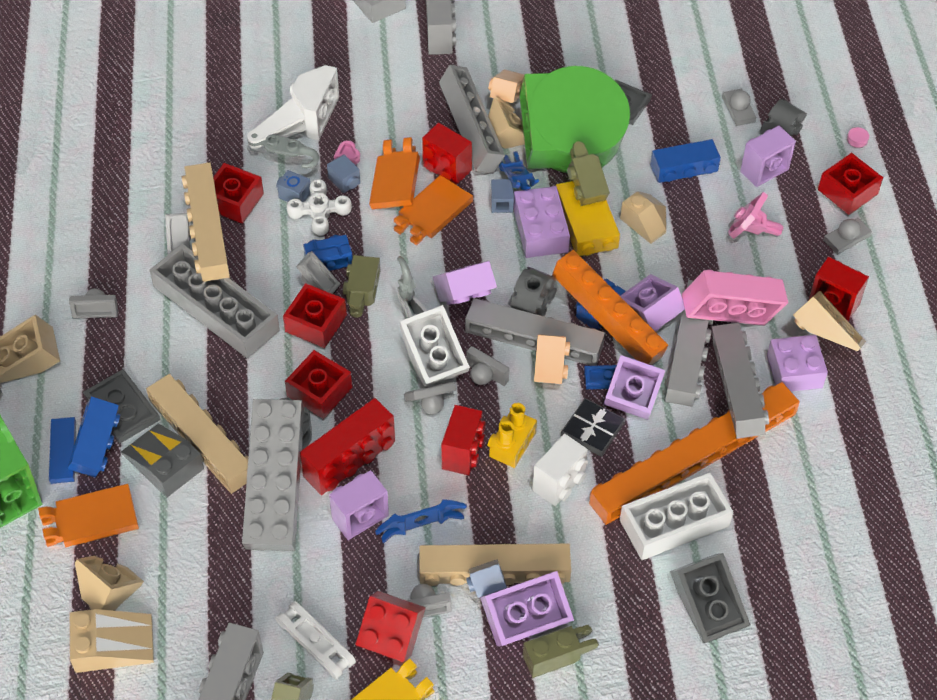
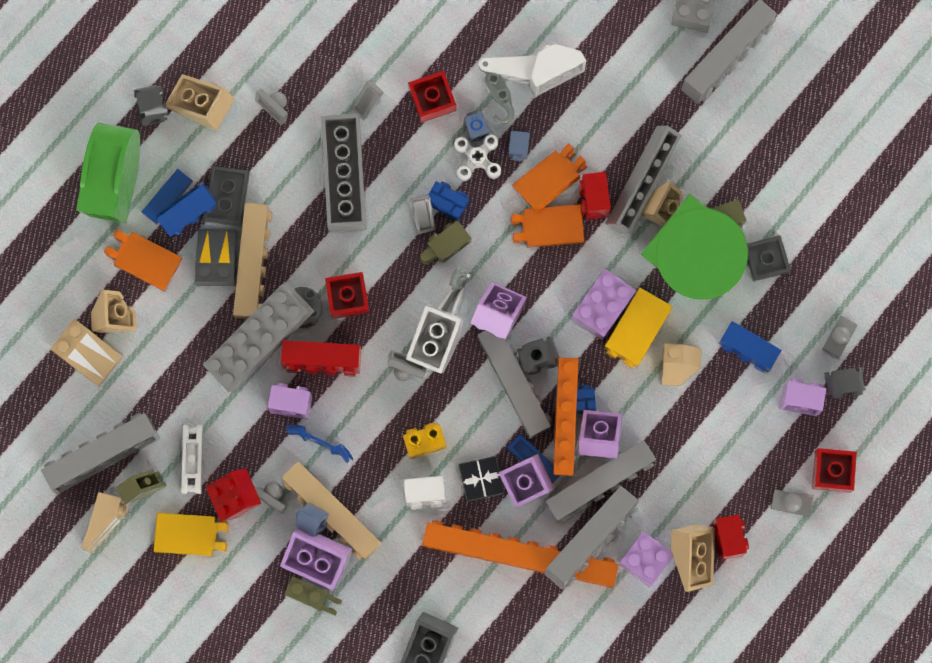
camera: 45 degrees right, 25 degrees up
(206, 222) = (385, 113): tan brick -> none
(314, 315) = (392, 242): red brick -> none
(348, 149) = (540, 127): bright pink tile -> none
(462, 440) = (390, 417): red brick -> none
(486, 368) = (457, 378): light grey tile -> none
(501, 196) = (601, 259): sand blue brick -> none
(506, 85) = (695, 176): light nougat brick -> none
(509, 167) = (625, 262): blue piece -> none
(550, 359) = (498, 412): light nougat brick -> none
(587, 176) = (656, 307): olive hinge -> none
(676, 516) = (460, 584): white brick -> none
(734, 298) = (649, 483): bright pink brick -> none
(754, 220) = (737, 432): bright pink piece -> none
(858, 137) = (891, 438): bright pink tile -> none

